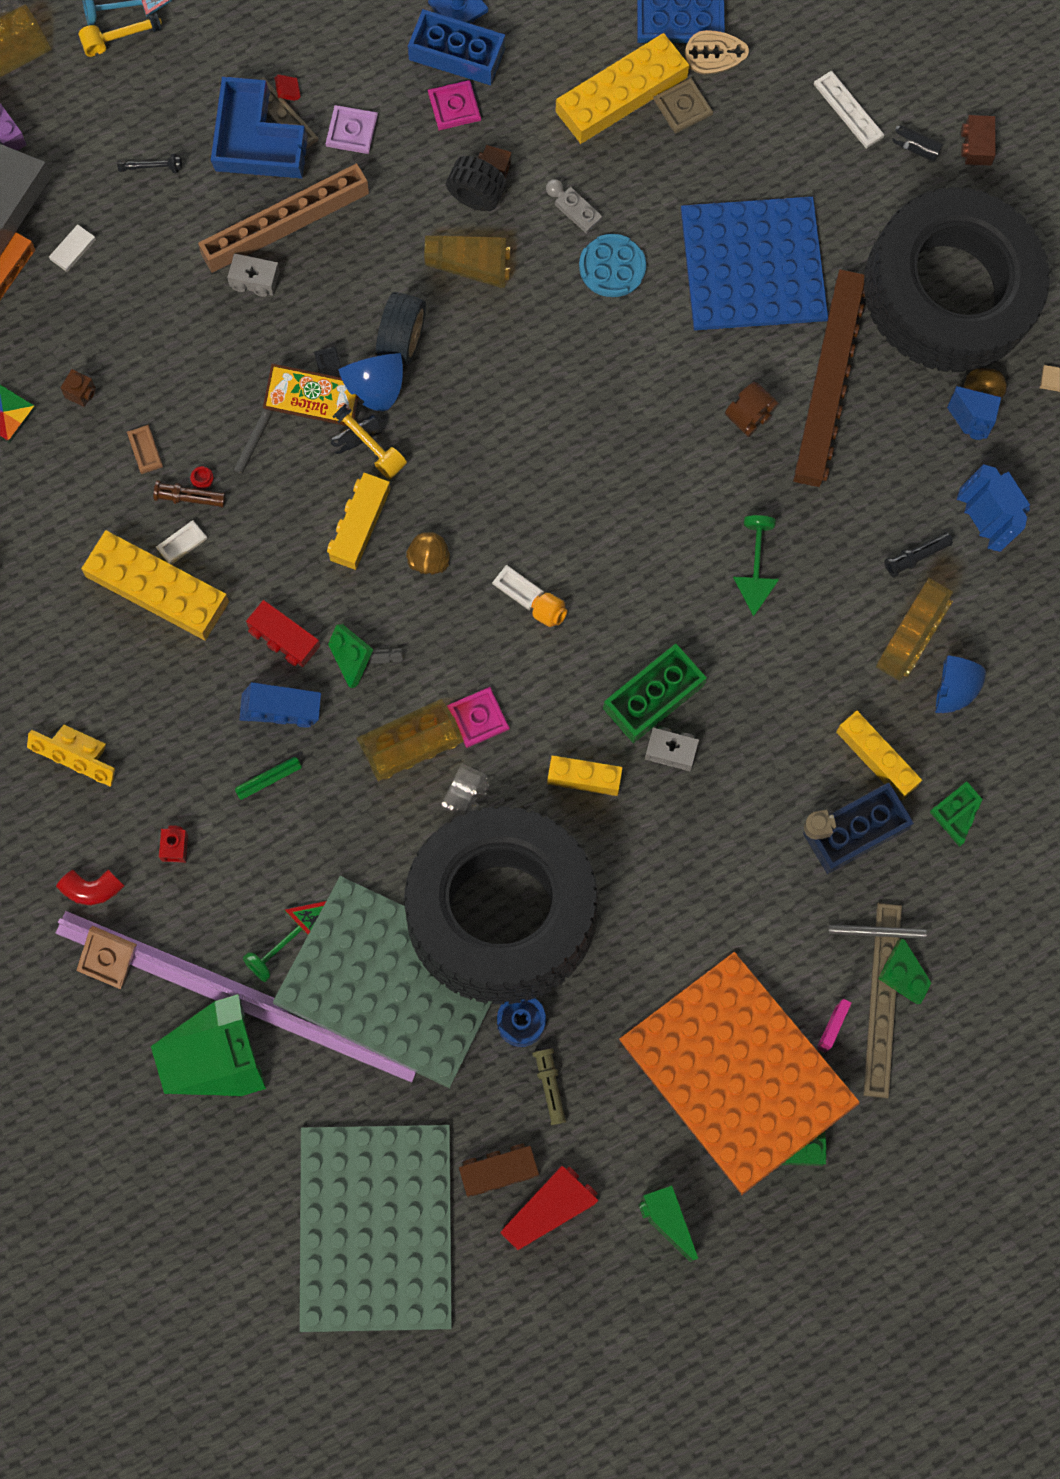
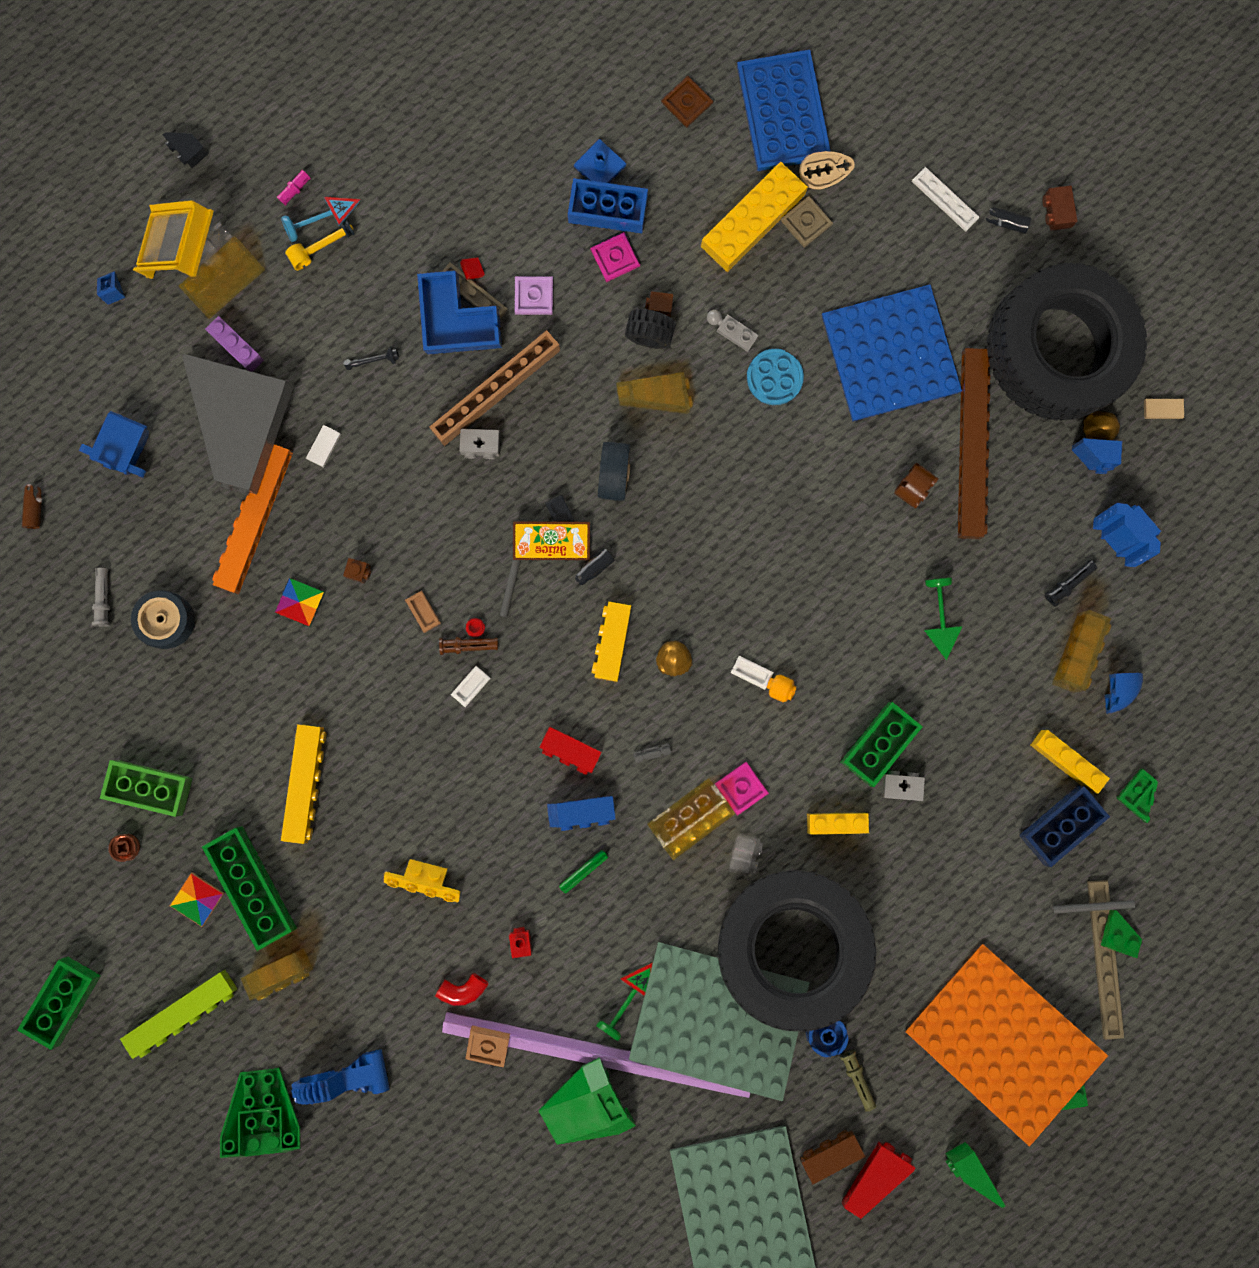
camera: 10 degrees left, 10 degrees up
(155, 585) = (457, 729): yellow brick -> none
(350, 654) = (628, 756): green wing -> none
(375, 380) = (602, 522): blue brick -> none
(389, 462) = (626, 585): yellow piece -> none
(819, 825) = (1036, 835): dark tan plate -> none
(834, 1025) = (1074, 993): dark pink tile -> none

